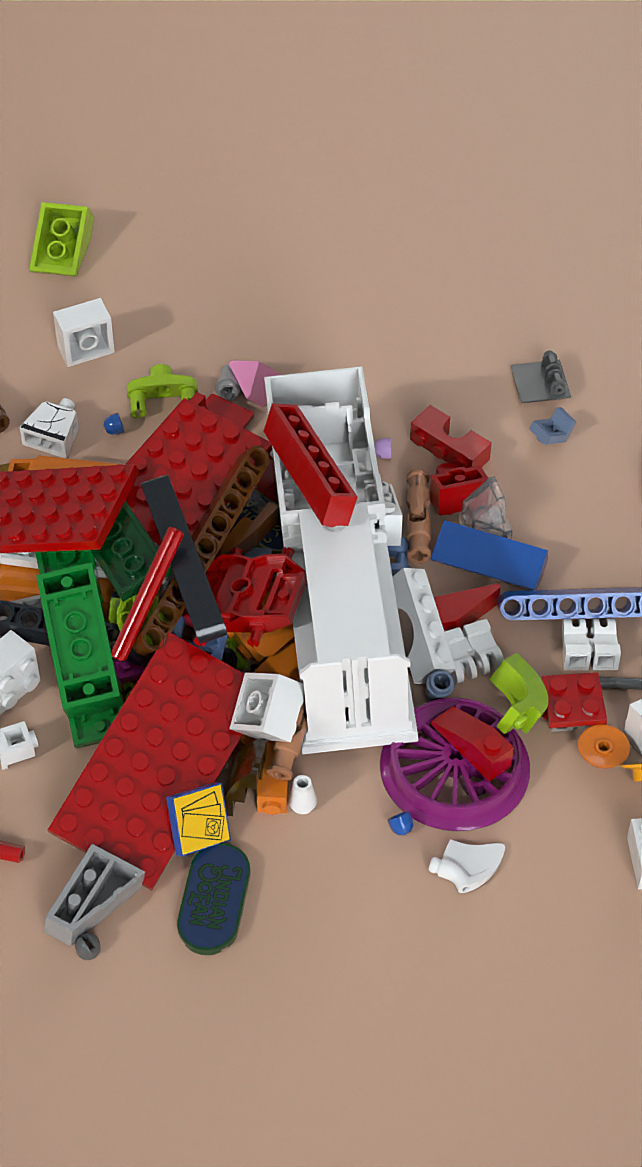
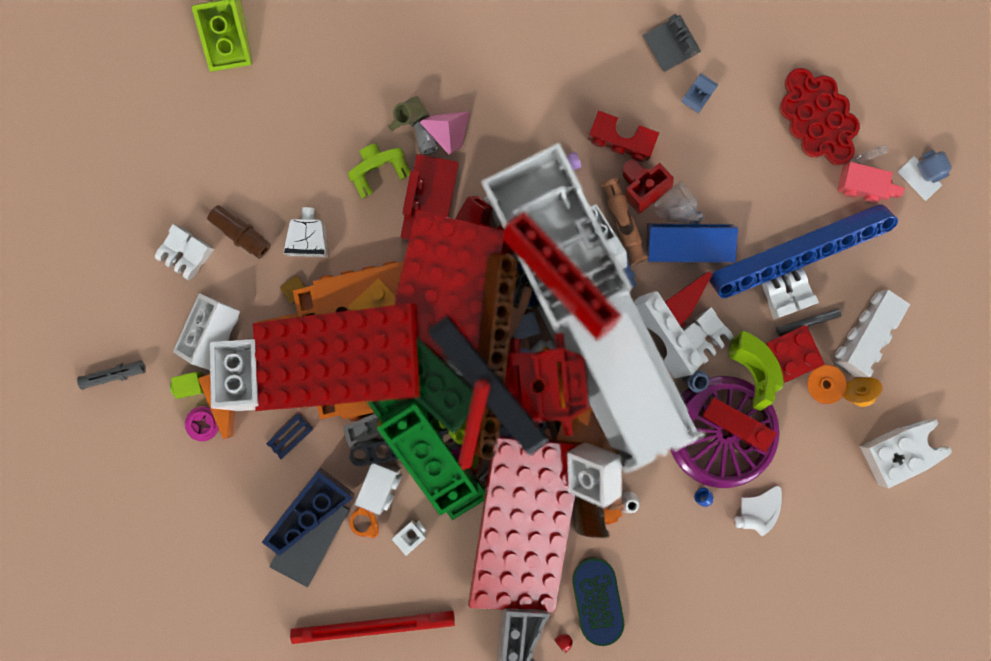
camera: 15 degrees left, 35 degrees up
(84, 332) = (289, 134): white brick -> none
(113, 424) = (353, 214): blue hinge -> none
(145, 928) = (564, 641): none -> red hinge
(198, 818) = (569, 558): yellow tile -> none
(218, 350) = (408, 113): none -> olive piece

